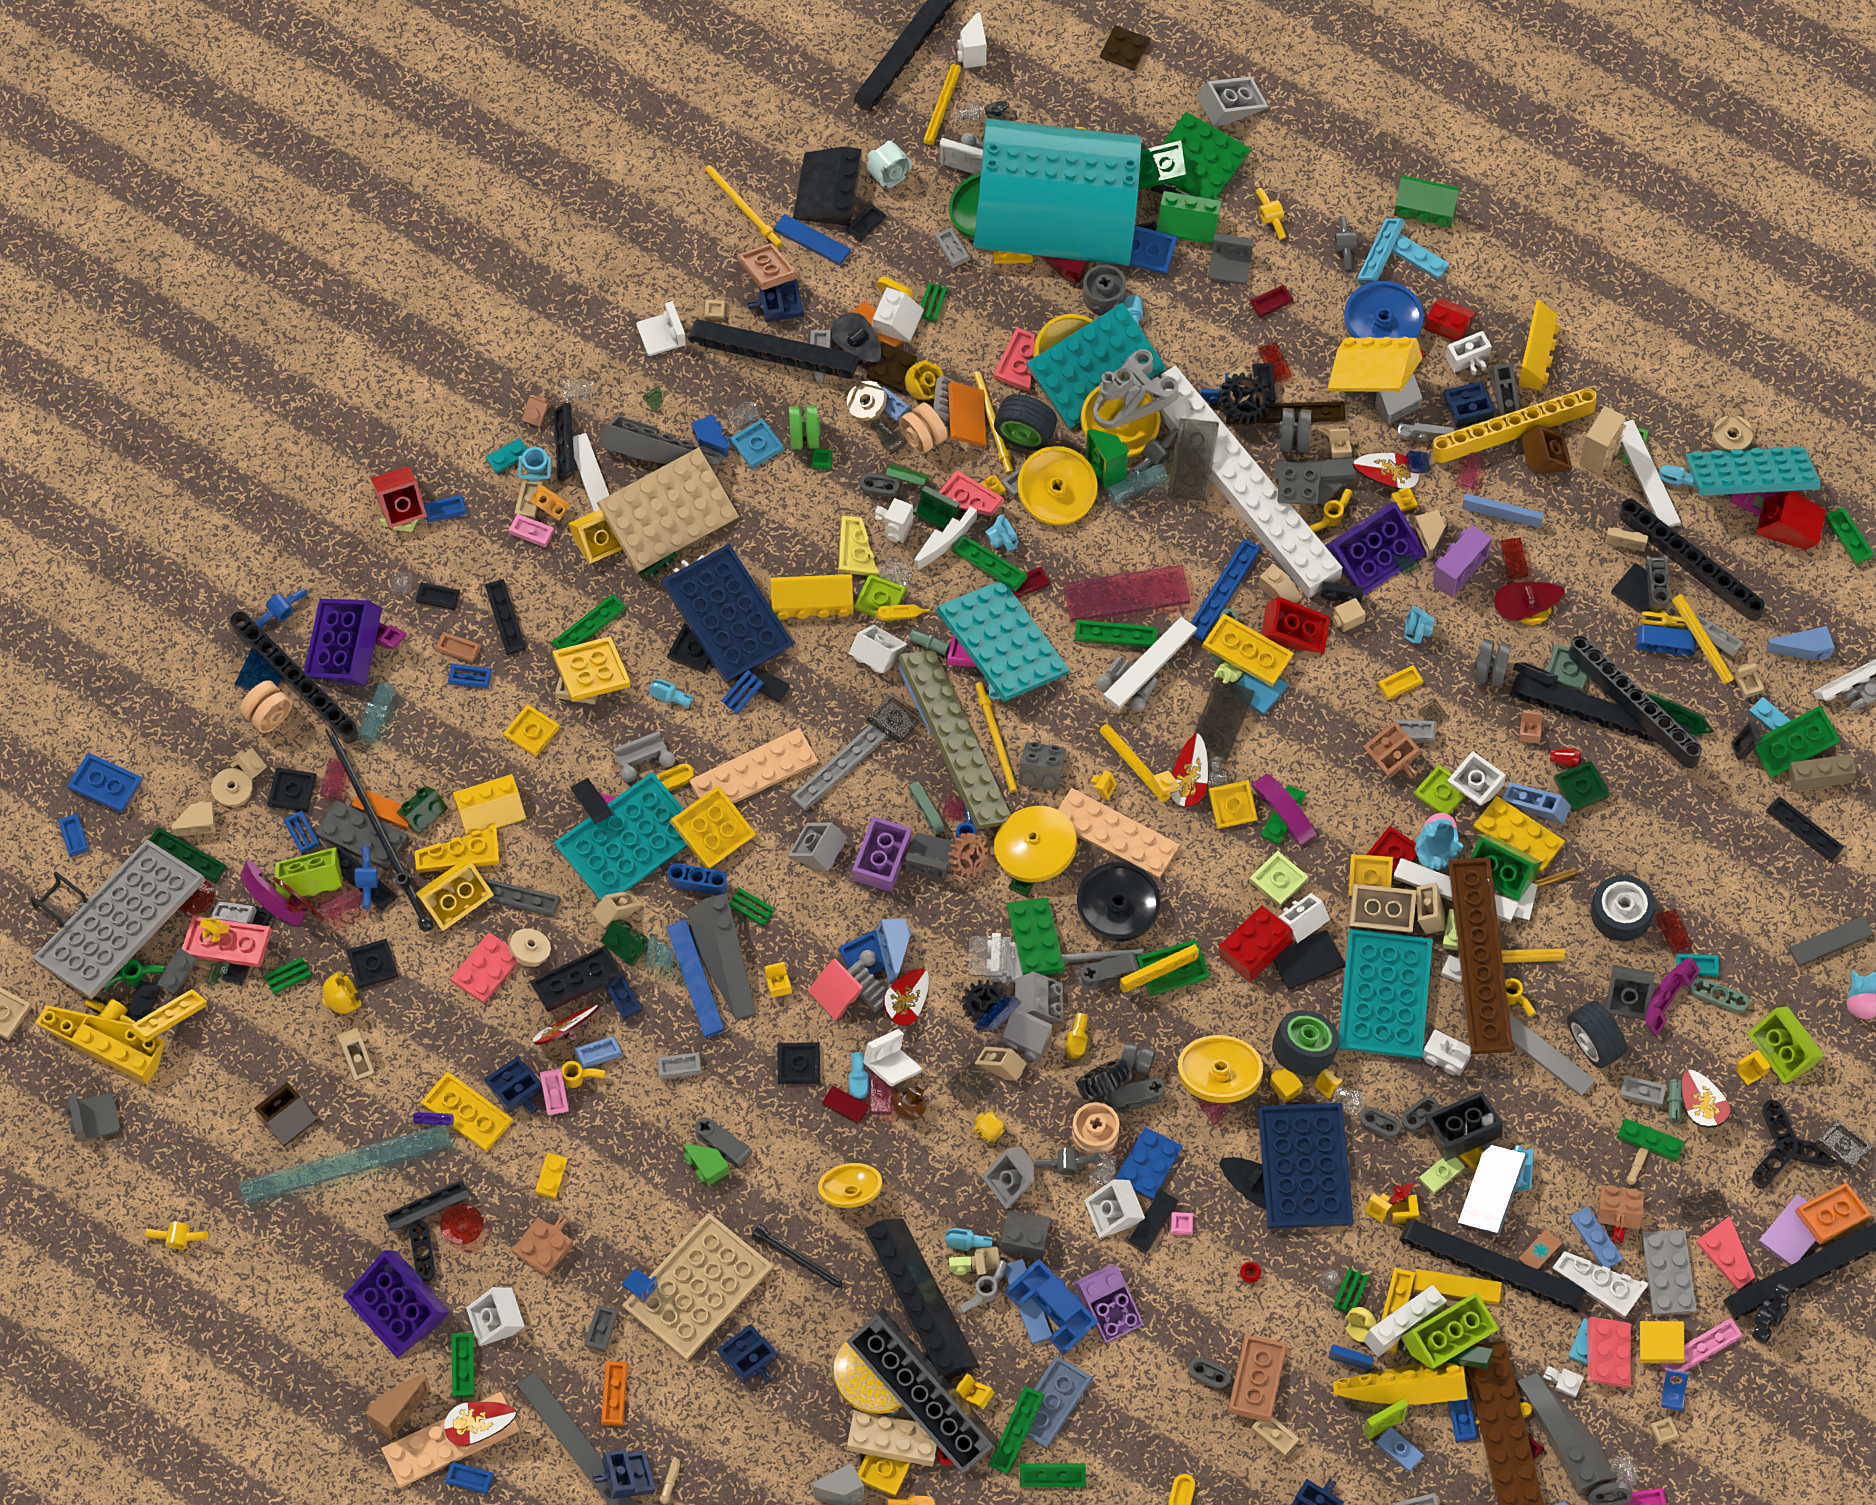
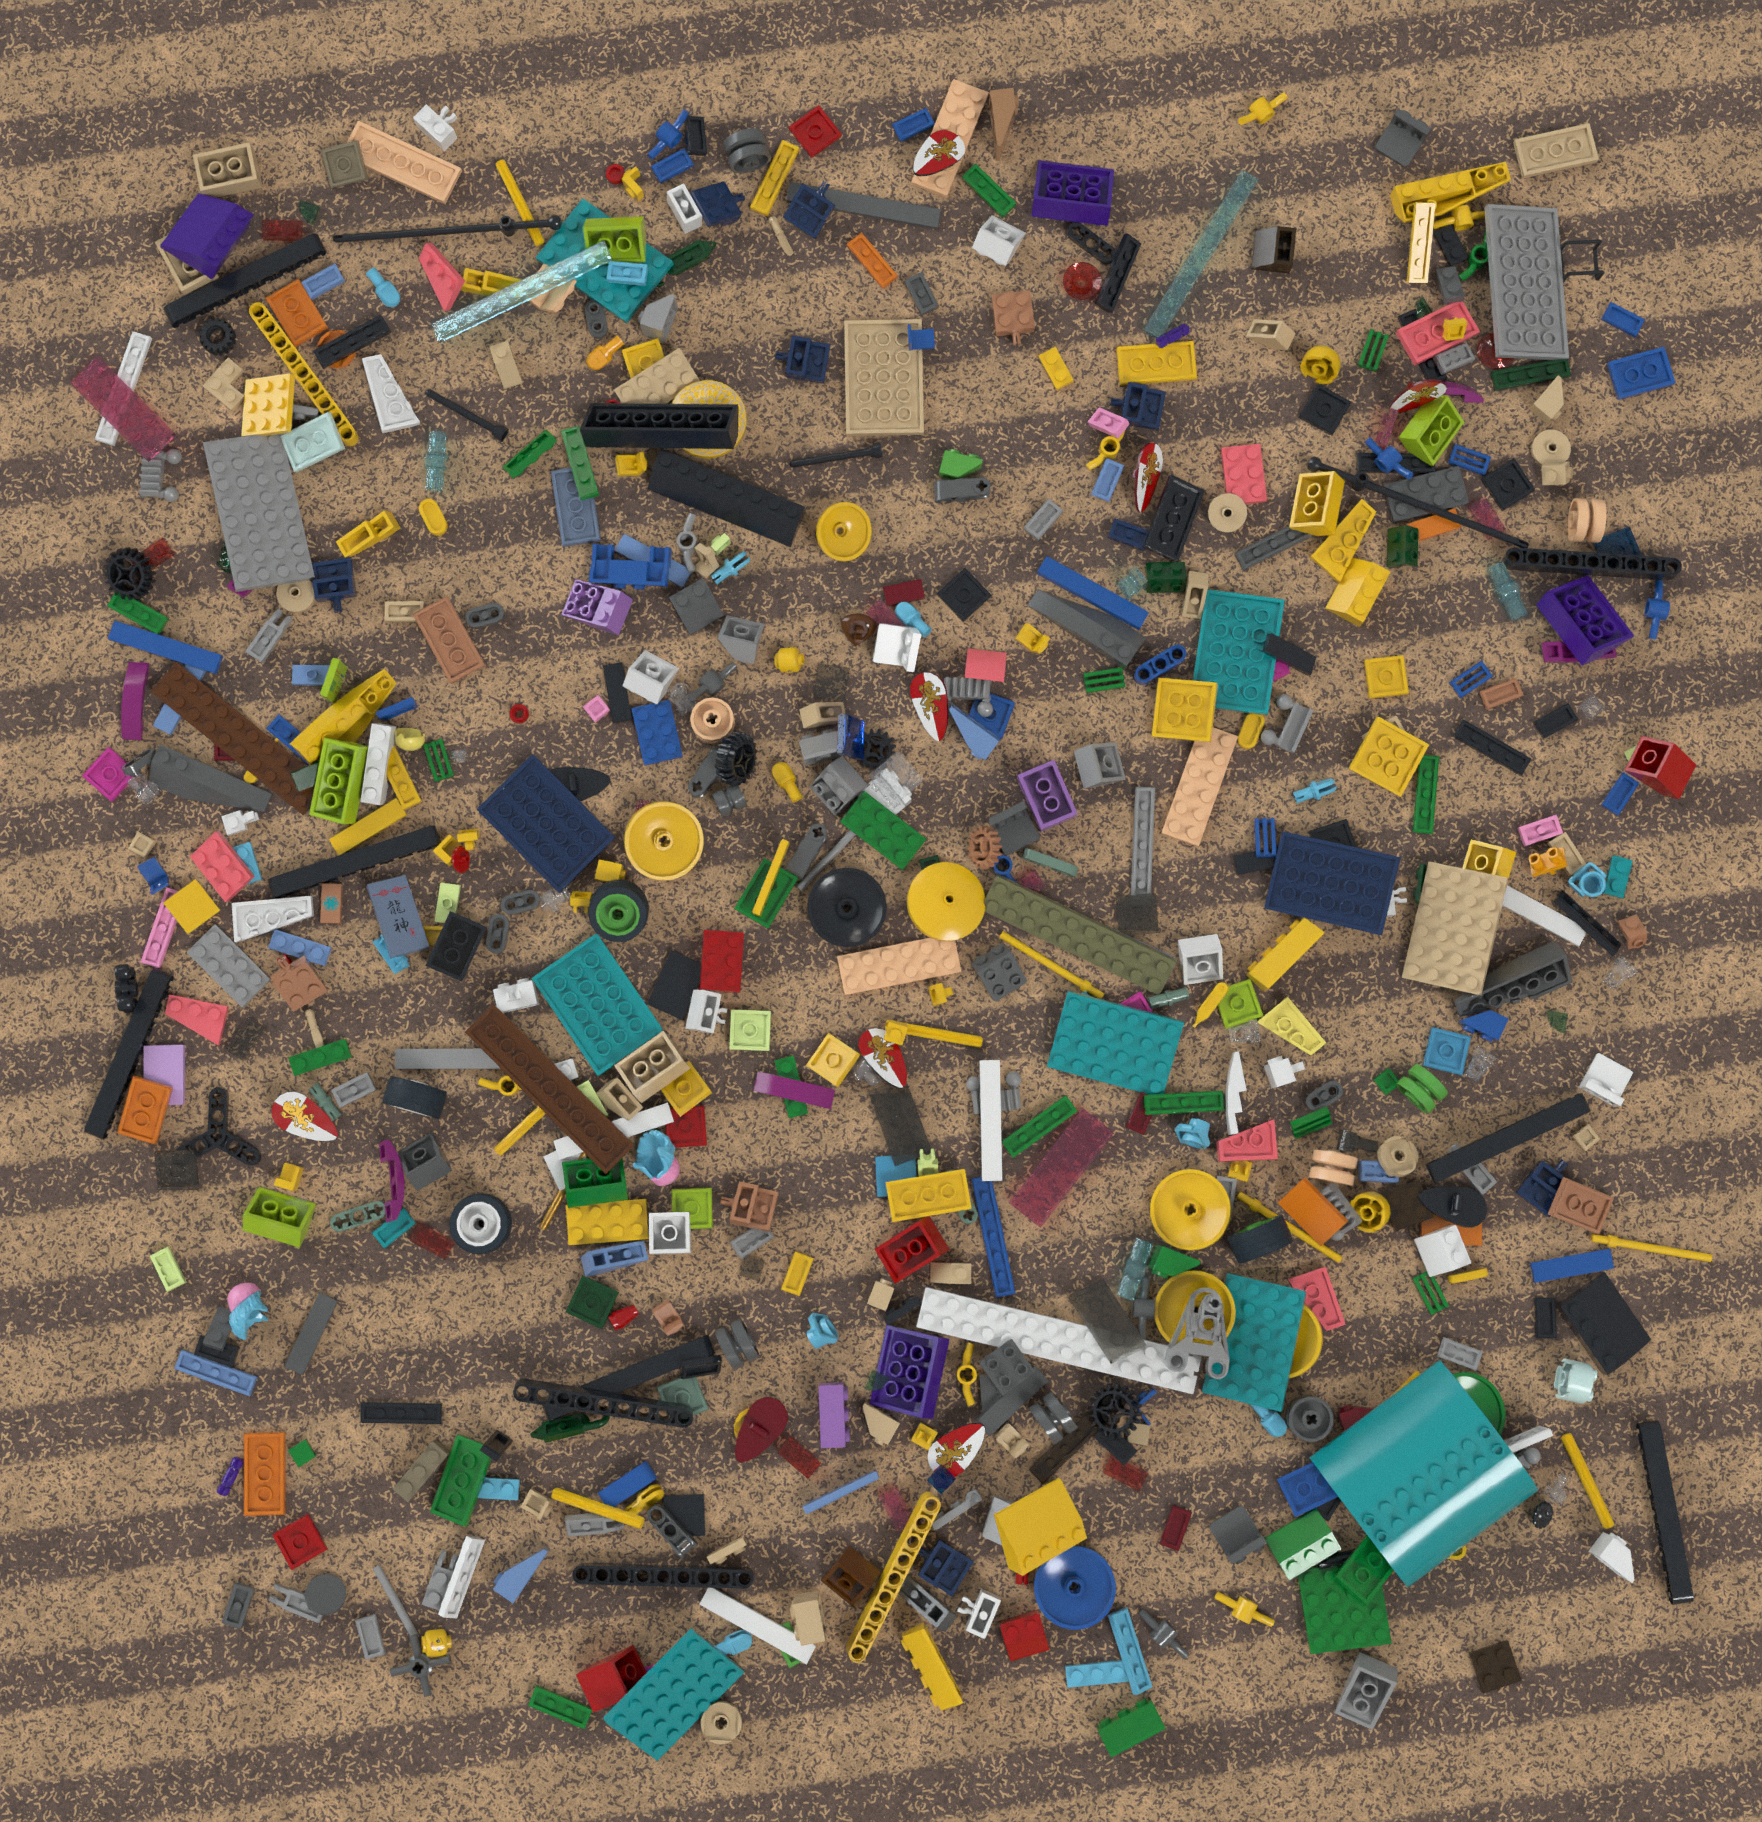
camera: 140 degrees right, 20 degrees up
(936, 508) = (1262, 1110): dark green bracket -> none

